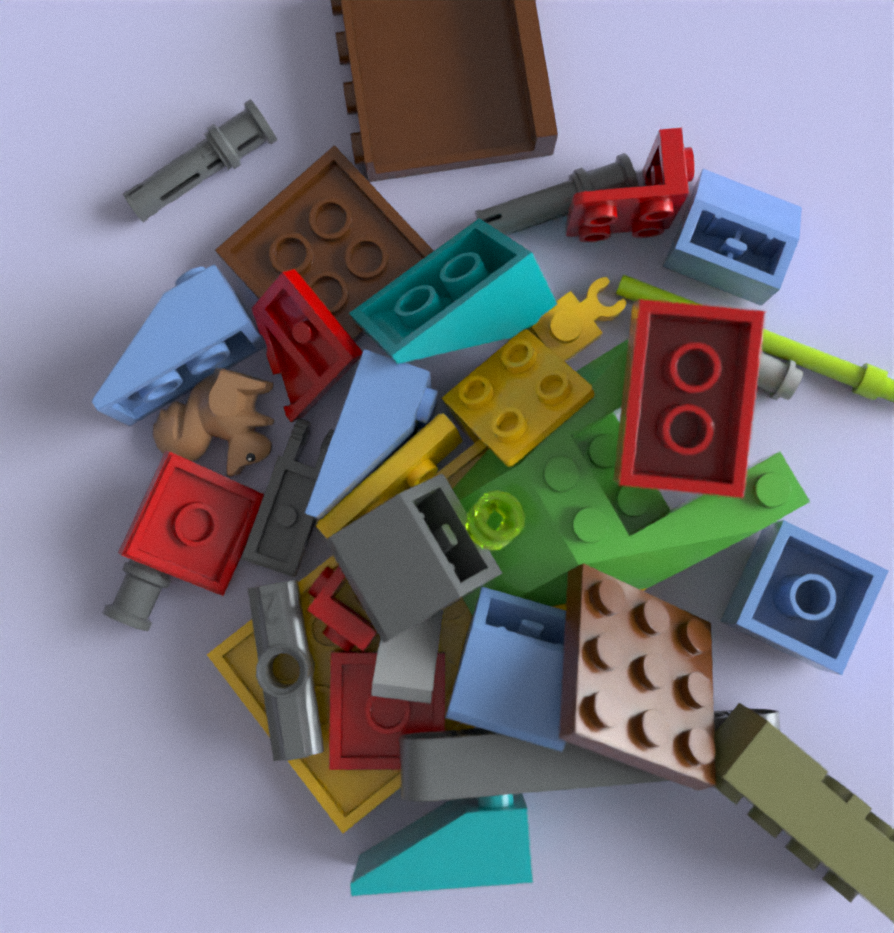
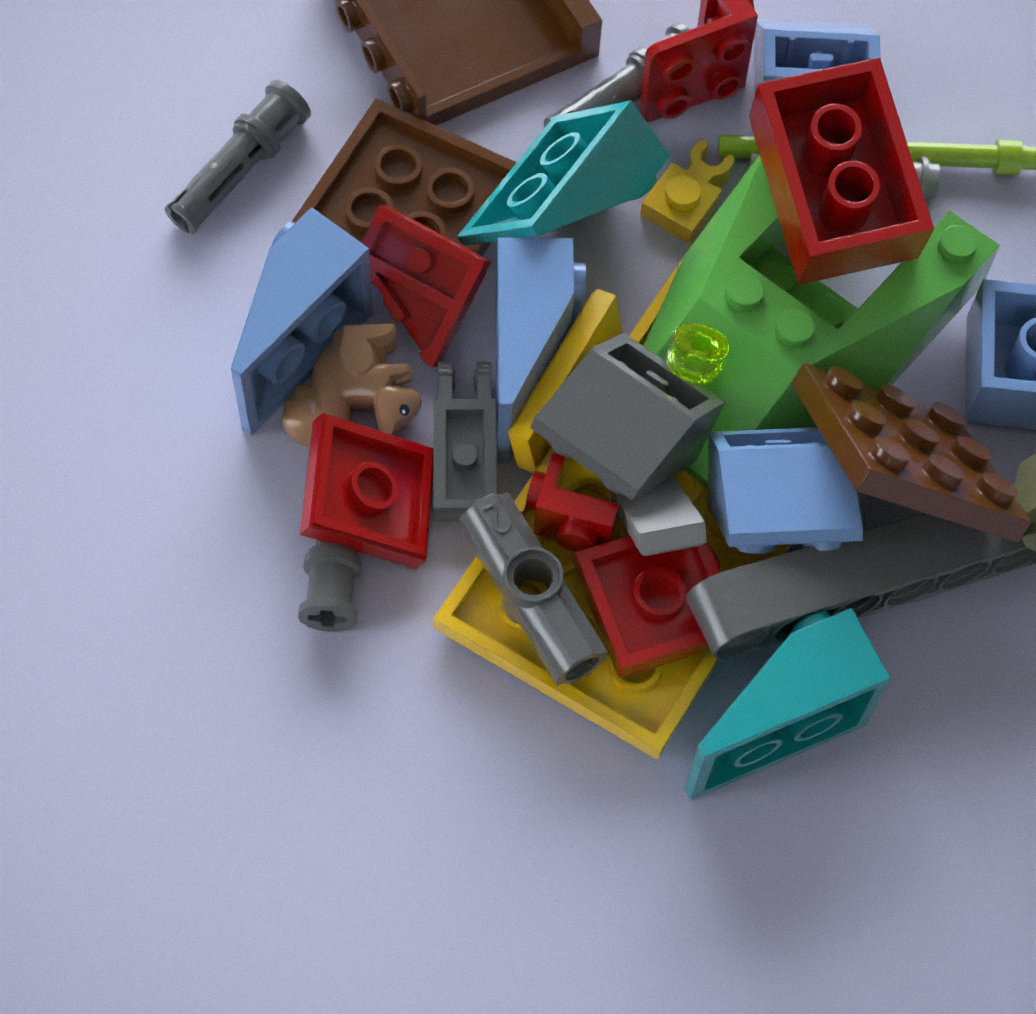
camera: 25 degrees left, 20 degrees down
(517, 397) = (665, 252): yellow bracket -> none

